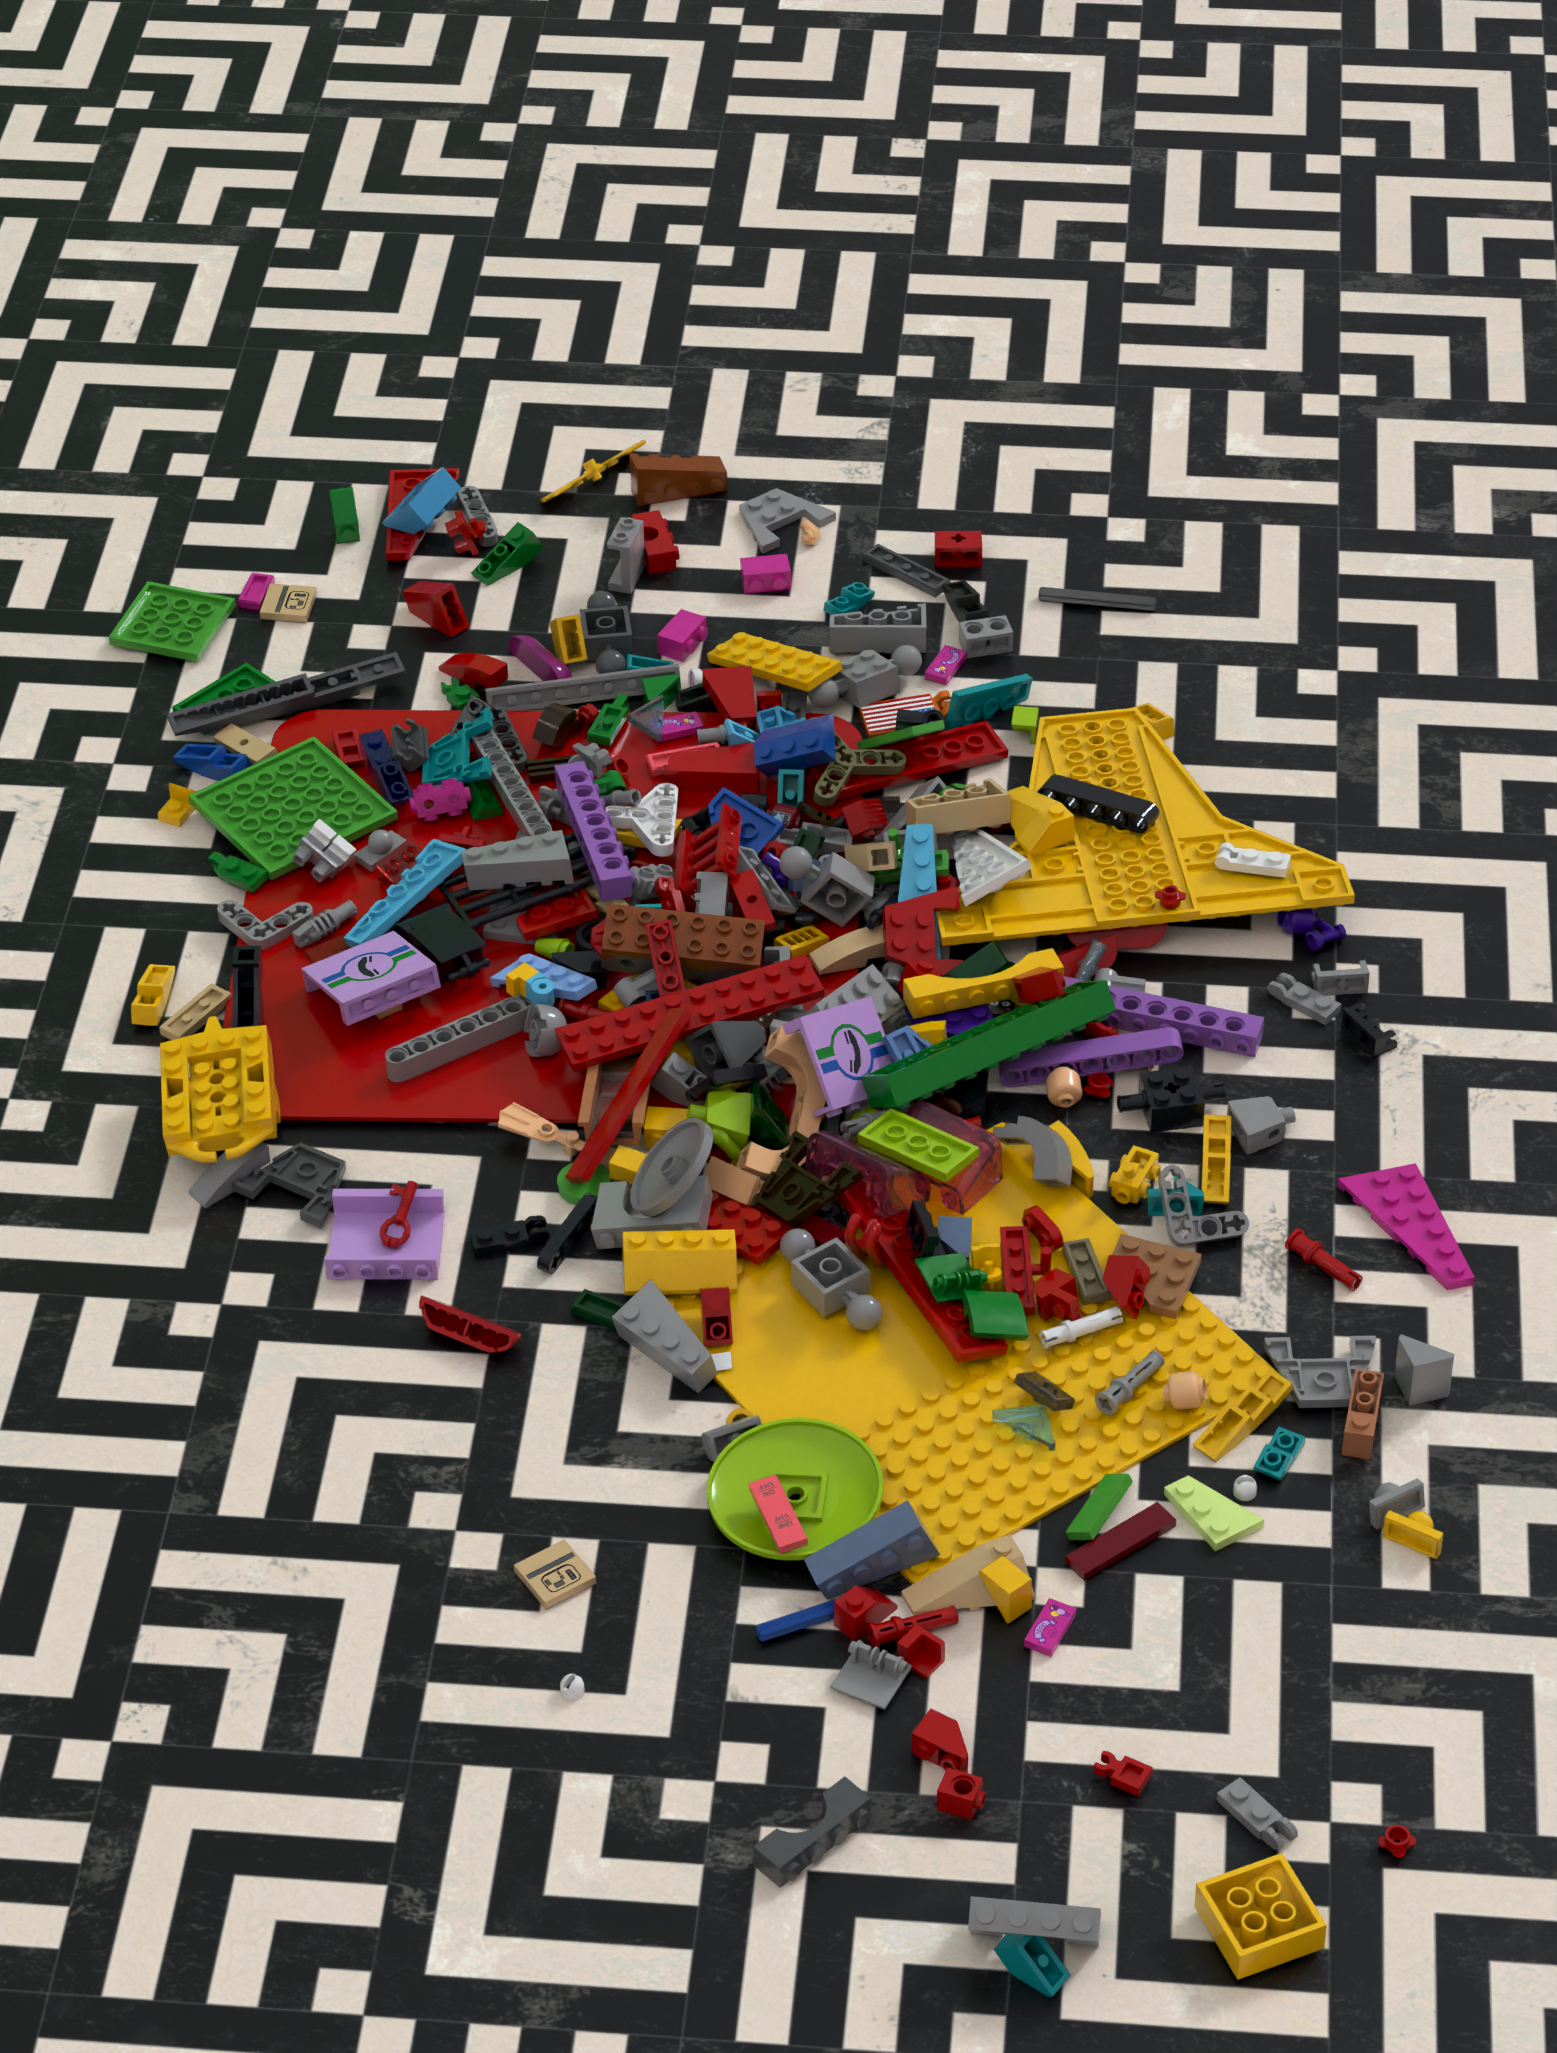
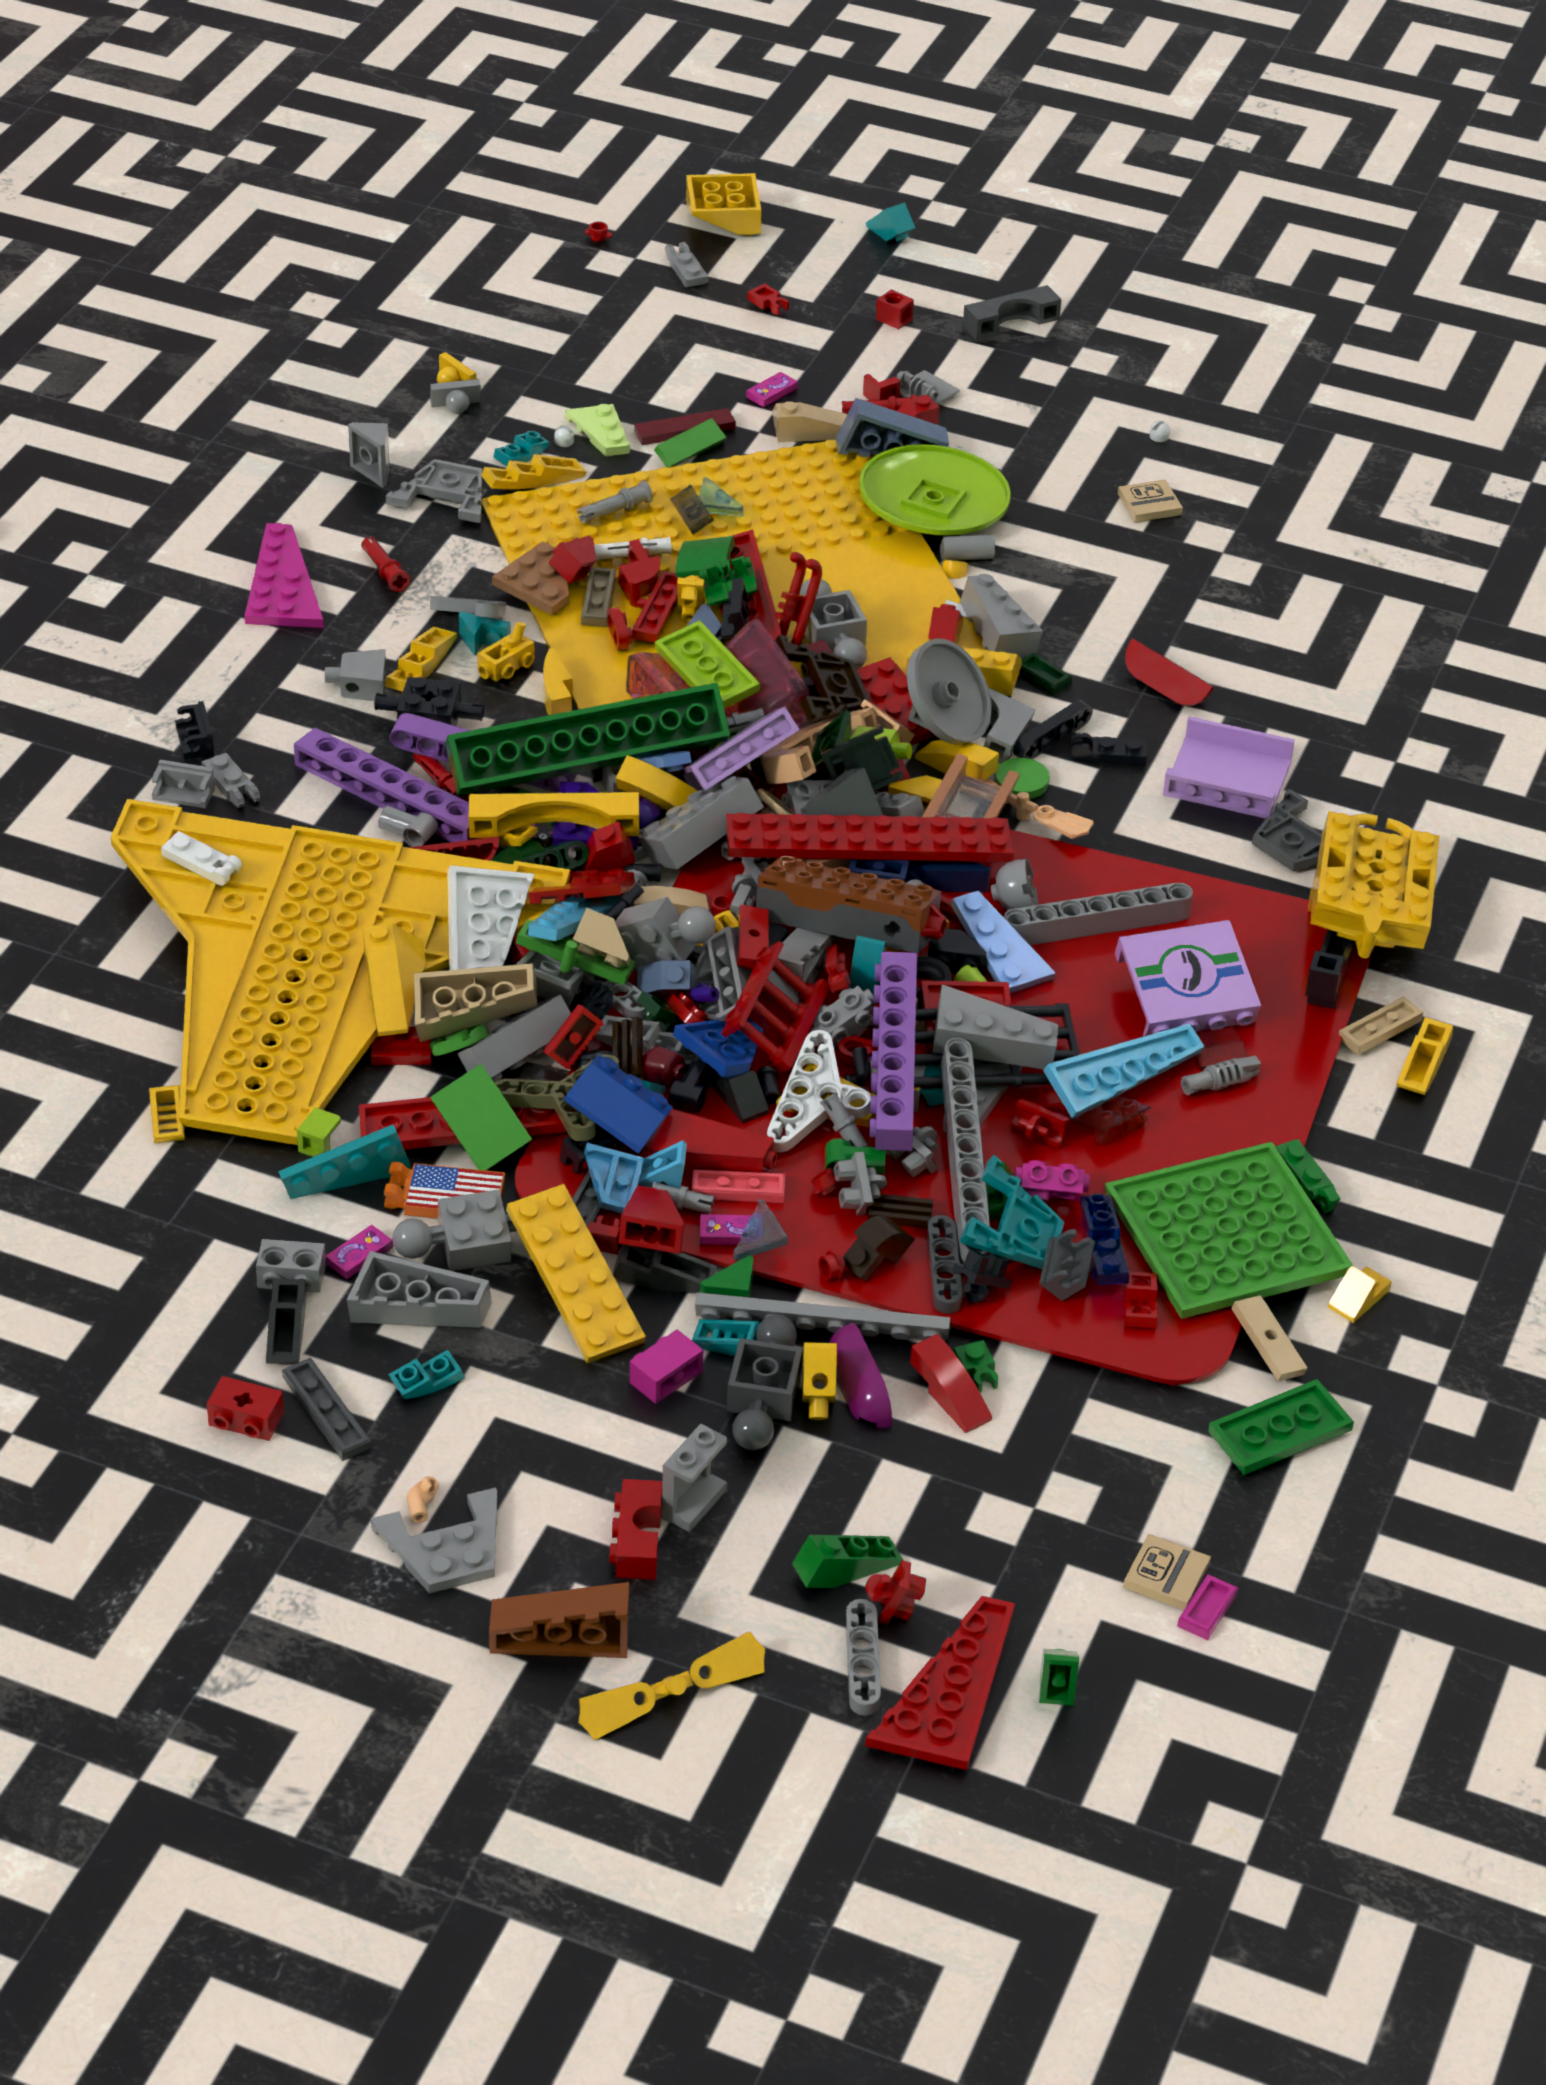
camera: 165 degrees left, 0 degrees up
(172, 621) = (1333, 1573): bright green plate -> none
(211, 760) = (1315, 1334): blue slope -> none
(265, 932) = (1292, 1086): light grey beam -> none
(286, 696) = (1202, 1390): dark grey slope -> none
(324, 851) = (1205, 1140): light grey hips -> none
(379, 846) = (1134, 1153): light grey tile -> none
(399, 1219) = (1212, 766): red piece -> none
(424, 503) = (945, 1652): dark azure slope -> none
(437, 605) = (973, 1489): red slope -> none
(446, 942) = (1098, 1004): black piece -> none
(530, 984) = (1022, 910): leg -> none
(609, 721) = (807, 1248): green hinge -> none
(628, 1095) = (957, 782): red tile -> none
(662, 944) = (878, 864): red tile -> none
(694, 677) = (676, 1296): white tile -> none
(765, 573) = (515, 1435): dark pink brick -> none
(778, 1514) = (958, 467): coral tile -> none
(795, 1621) = (974, 431): blue axle -> none
(910, 718) = (435, 1149): black piece -> none
(940, 1742) = (895, 338): red slope -> none
(1008, 1587) = (796, 389): yellow slope -> none
(1039, 985) = (509, 769): red slope -> none
(1047, 1920) = (858, 197): light grey arch -> none
(1051, 1152) = (583, 676): light grey arch -> none
(1091, 960) = (427, 835): clear light blue pin -> none
(1097, 598) = (117, 1296): dark grey axle -> none
(1101, 803) = (316, 970): black beam -> none
(1170, 897) = (315, 837): red plate -> none
(1185, 1390) = (574, 482): light nougat head -> none
(1362, 1414) = (444, 441): nougat slope -> none

